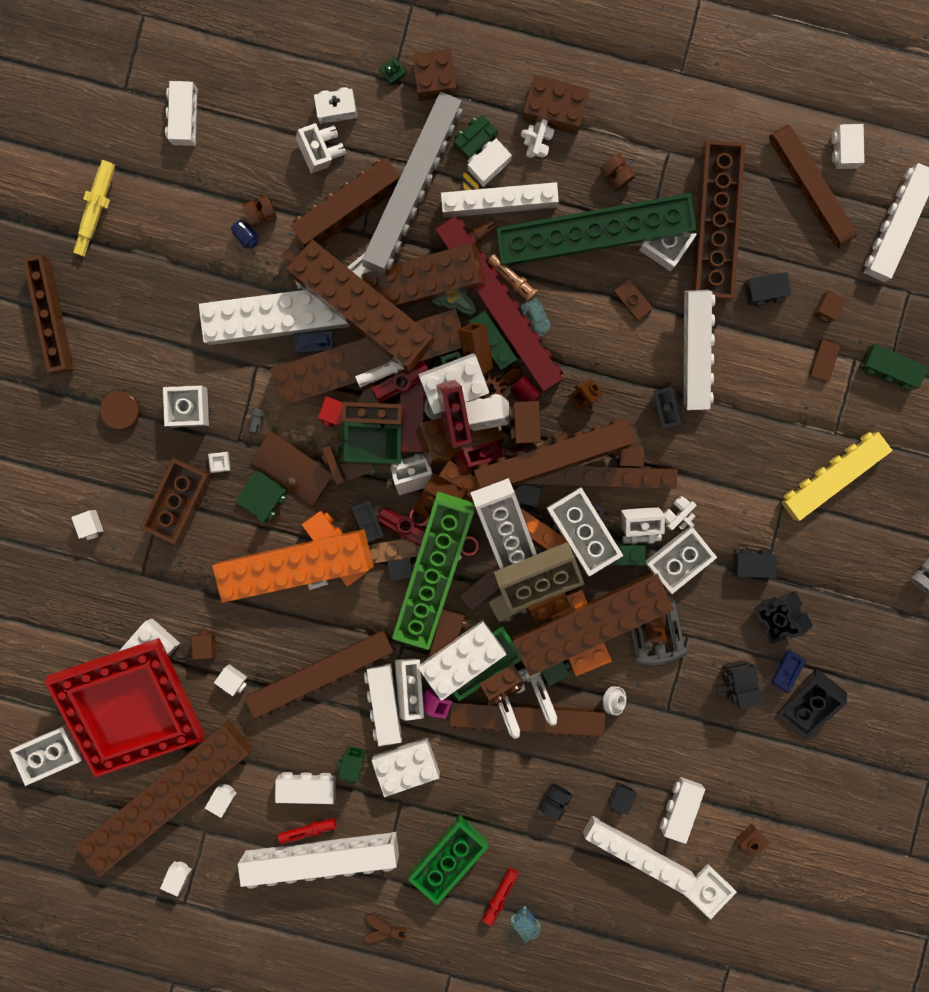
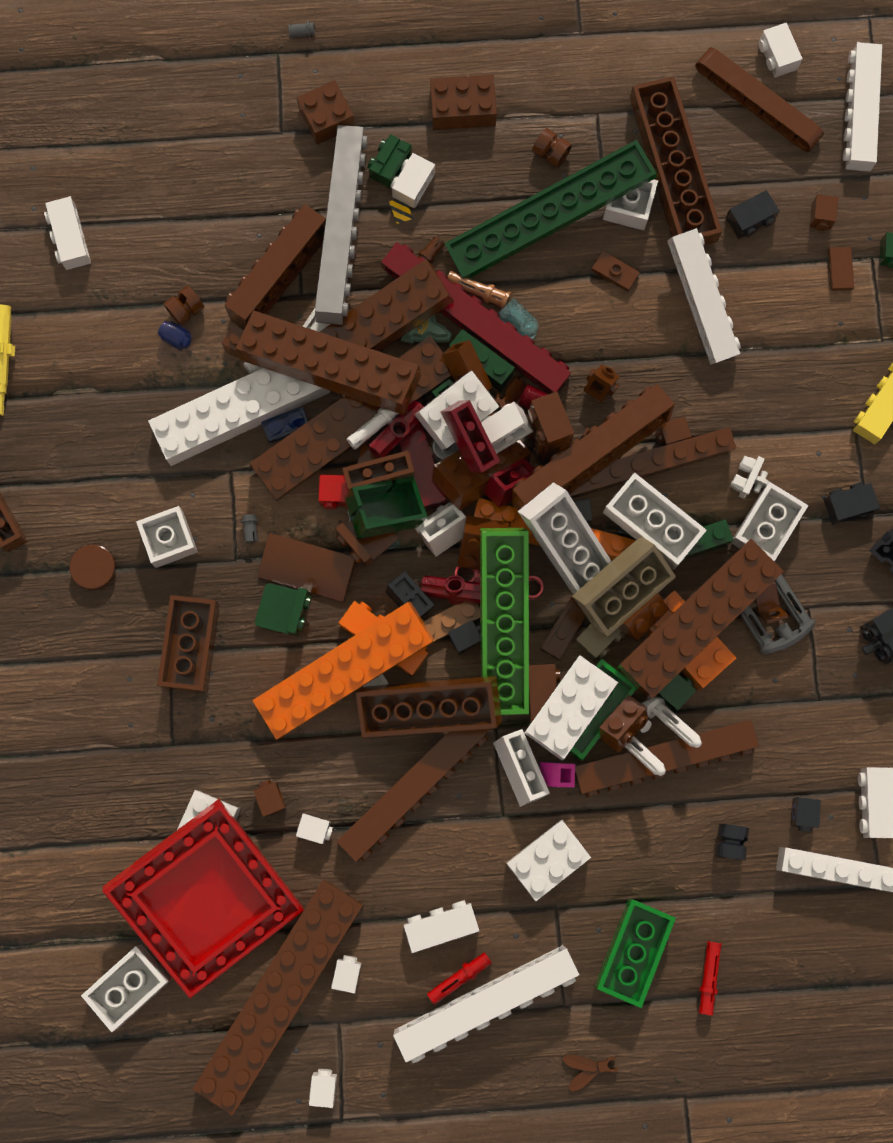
camera: 20 degrees left, 10 degrees down
(87, 525) = (94, 706): white brick -> none
(219, 462) = (222, 588): white tile -> none
(313, 148) = (222, 223): white brick -> none
(343, 111) = (241, 176): white brick -> none
(350, 619) = (429, 707): none -> reddish brown brick
(351, 764) = (485, 877): dark green brick -> none
(384, 704) = (498, 796): white brick -> none
(392, 71) = (279, 123): dark green tile -> none
(499, 200) = (438, 214): white brick -> none
(526, 924) = (752, 1000): clear light blue brick -> none
(534, 138) = (452, 141): white hips -> none
(614, 700) = (755, 703): white plate -> none
(642, 525) = (712, 497): white brick -> none
(668, 407) = (695, 366): black brick -> none

